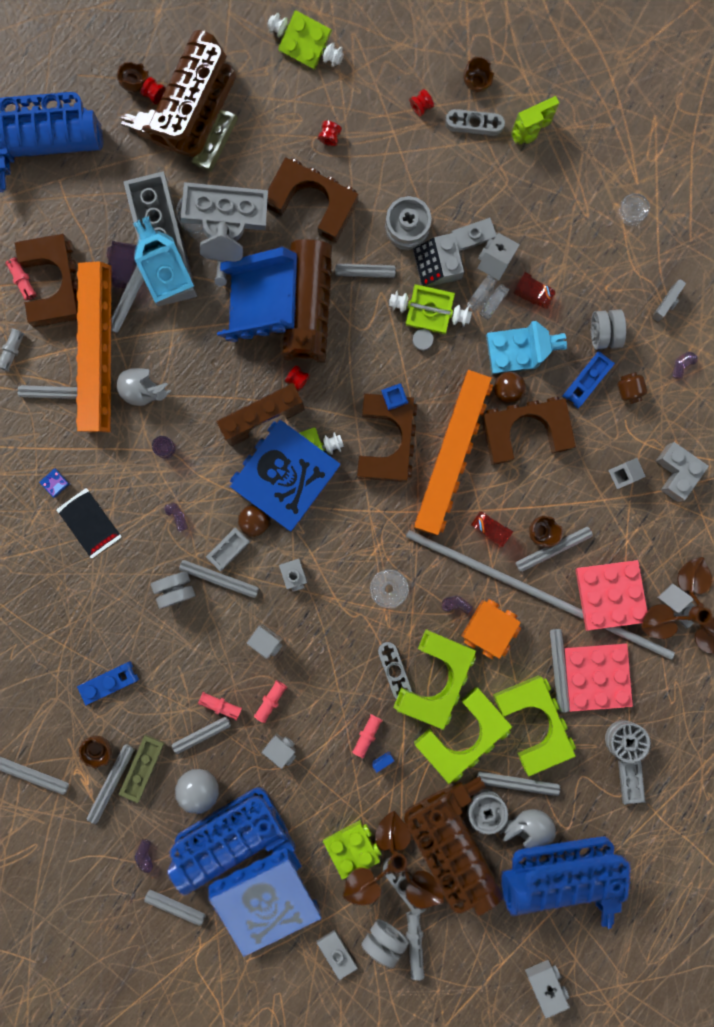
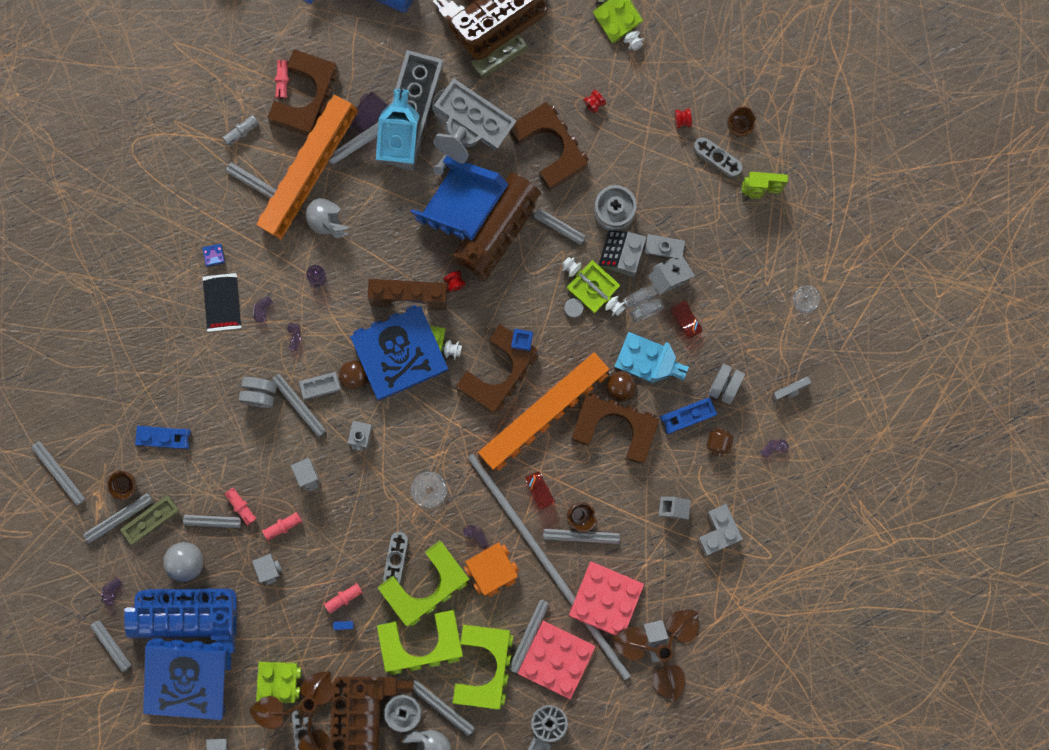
camera: 30 degrees right, 5 degrees down
(129, 509) = (260, 309): none -> clear purple arm

